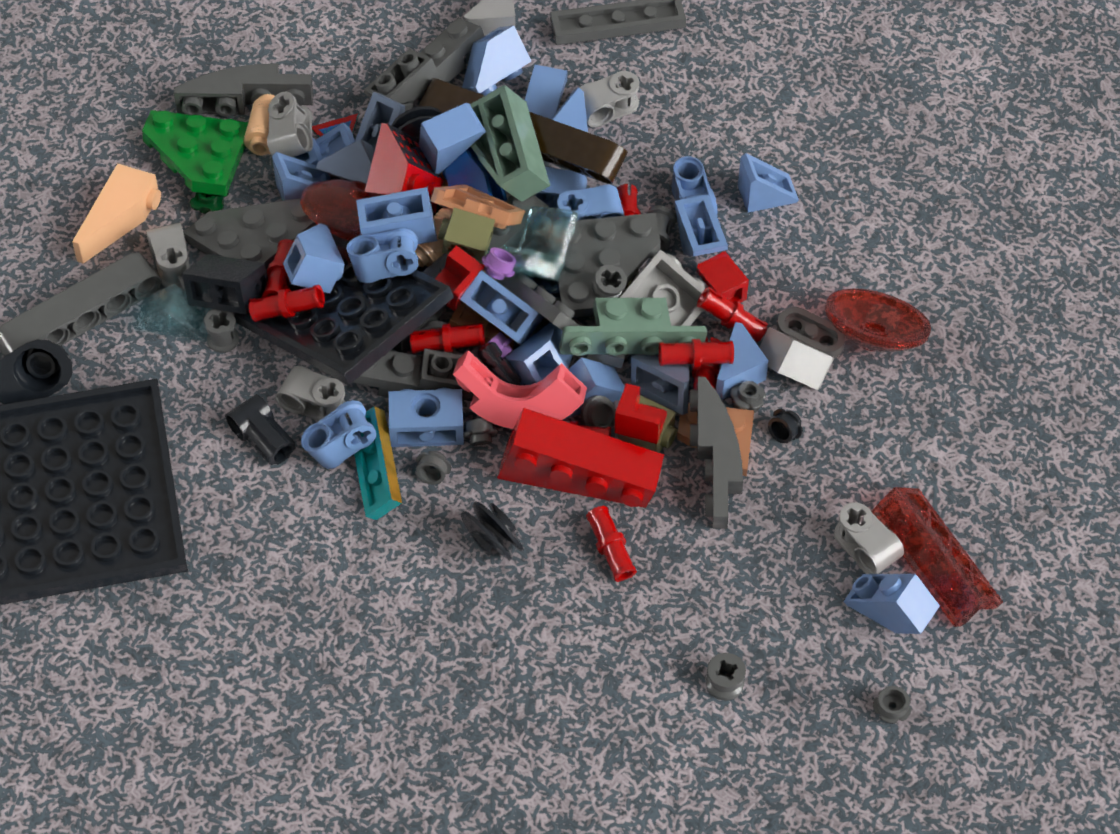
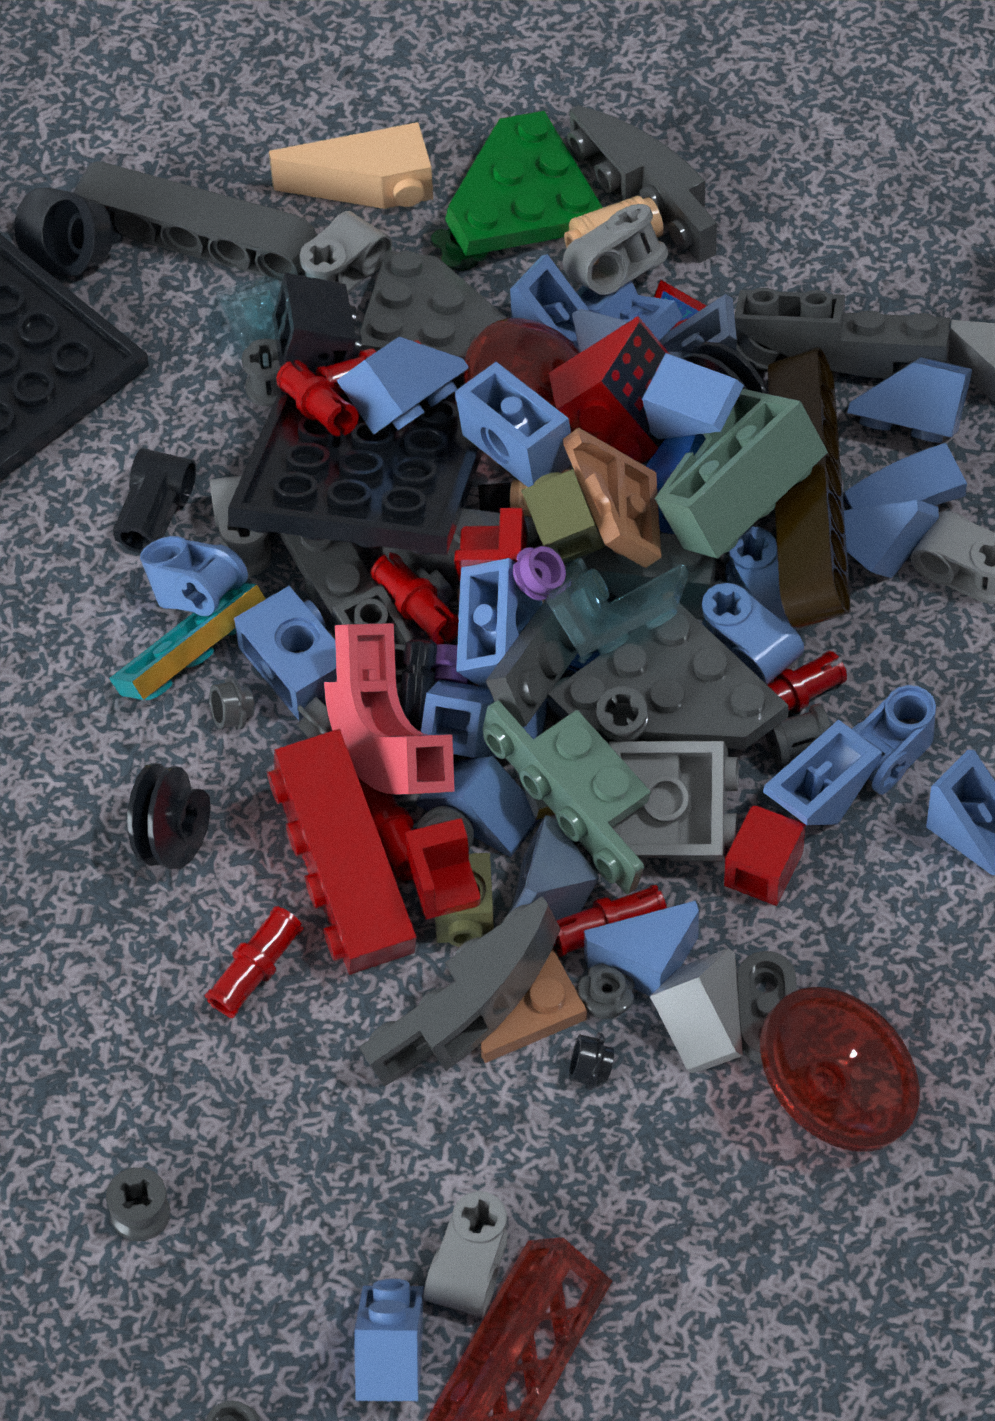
camera: 60 degrees right, 0 degrees up
(381, 257) = (453, 443): medium blue piece -> none
(696, 353) = (594, 879): red pin -> none
(731, 312) = (712, 893): red pin -> none

